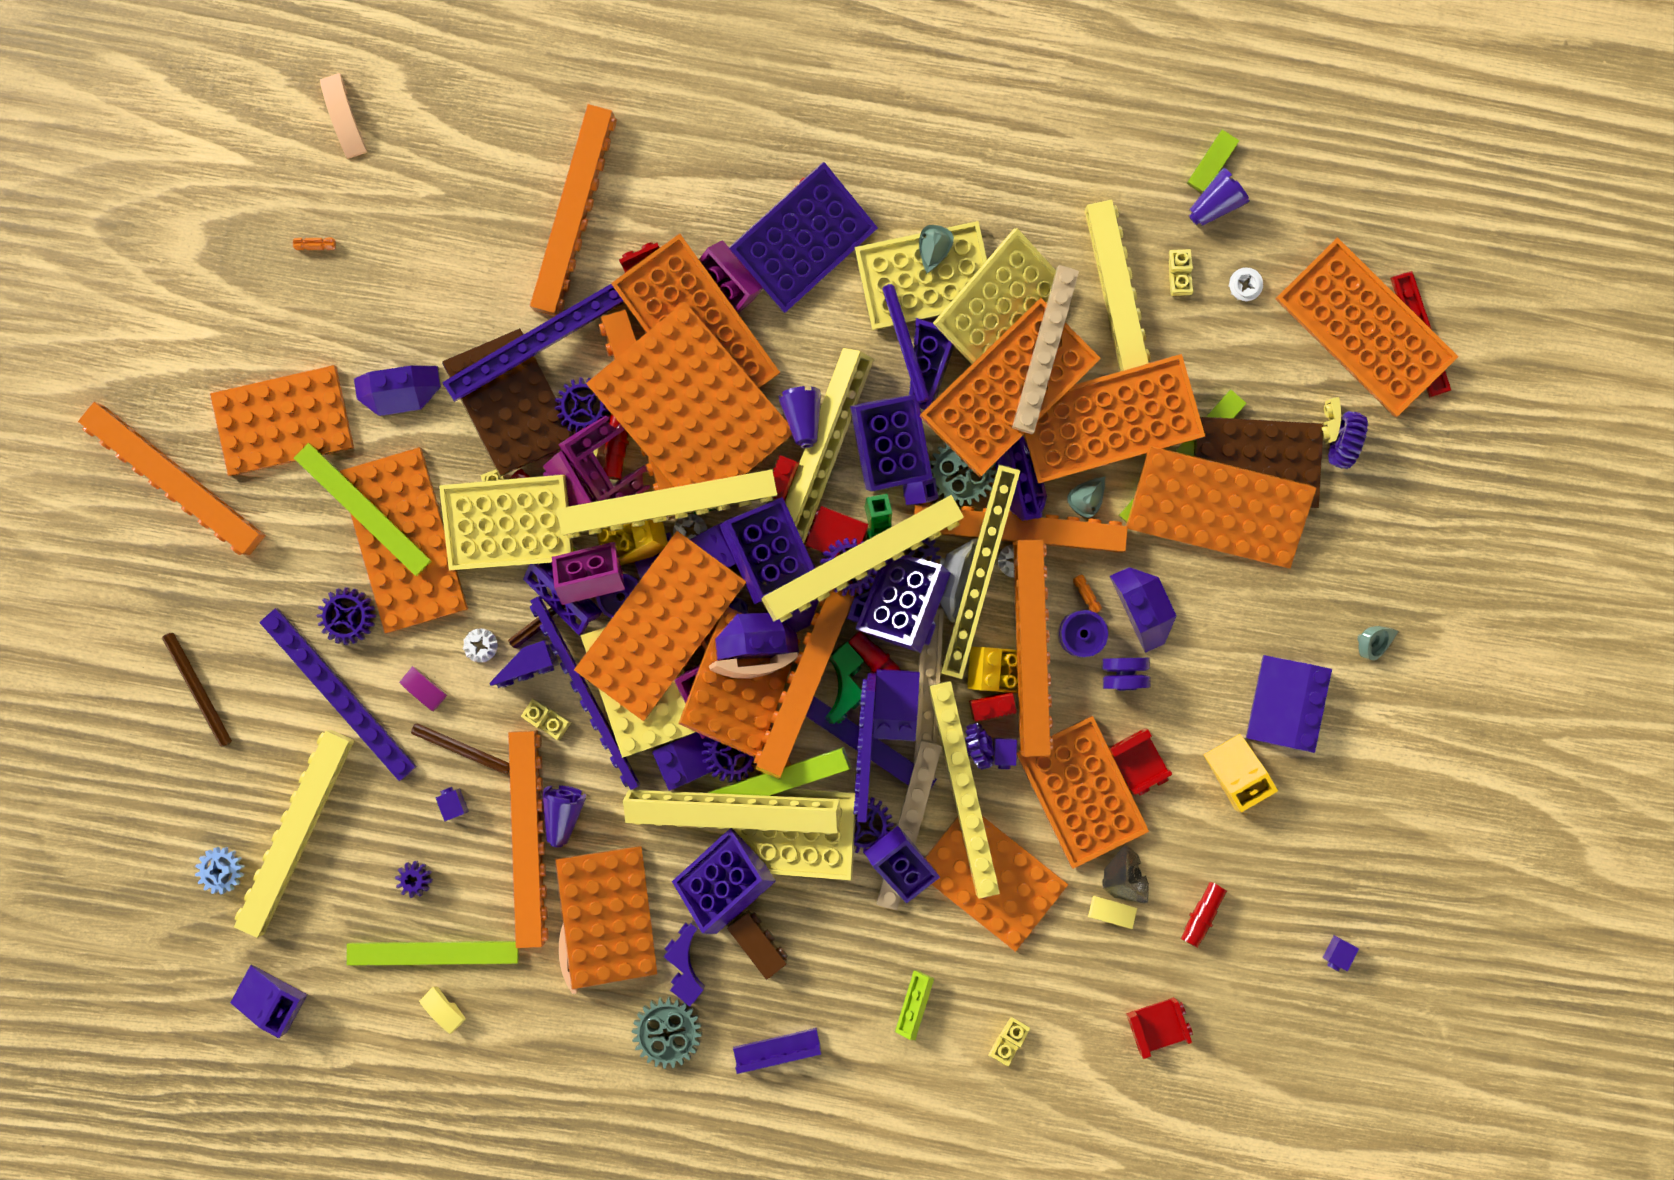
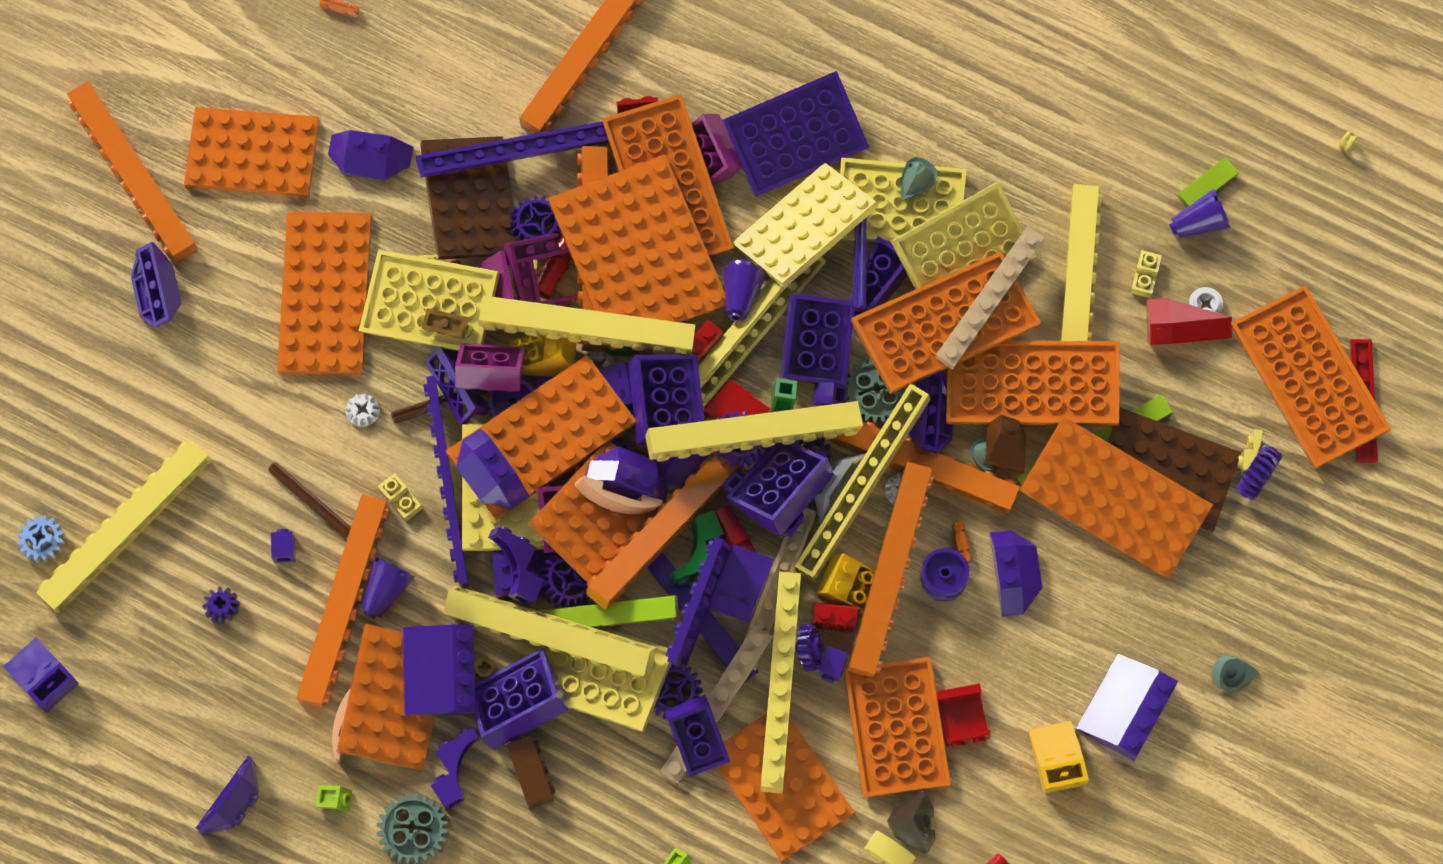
camera: 20 degrees right, 15 degrees down
(196, 689) = (81, 368): reddish brown axle -> none
(237, 588) = (155, 286): none -> dark purple wedge
(335, 603) = (255, 341): dark purple gear -> none
(338, 694) = (212, 414): dark purple plate -> none
(362, 509) = (298, 251): lime tile -> none
(423, 689) = (294, 432): magenta slope -> none
(432, 953) = (213, 682): lime tile -> none
(442, 1011) = (203, 738): light yellow slope -> none
(492, 1059) = (233, 800): none -> dark purple wedge
(527, 661) = (401, 436): dark purple slope -> none
(529, 542) = (445, 323): none -> pearl gold plate
(584, 1027) = (333, 798): none -> lime bracket
(622, 681) = (489, 472): none -> dark purple wedge
(640, 880) = (438, 670): none -> dark purple slope
(675, 856) = (478, 665): none -> pearl gold bush
(692, 772) = (519, 551): none -> dark purple arch
(843, 329) = (805, 224): none -> light yellow plate
(1101, 488) = (1006, 444): none -> reddish brown slope
(1126, 673) = (975, 623): dark purple wheel -> none
(1230, 313) = (1182, 323): none -> red wedge
(1334, 76) = (1347, 141): none -> light yellow bush

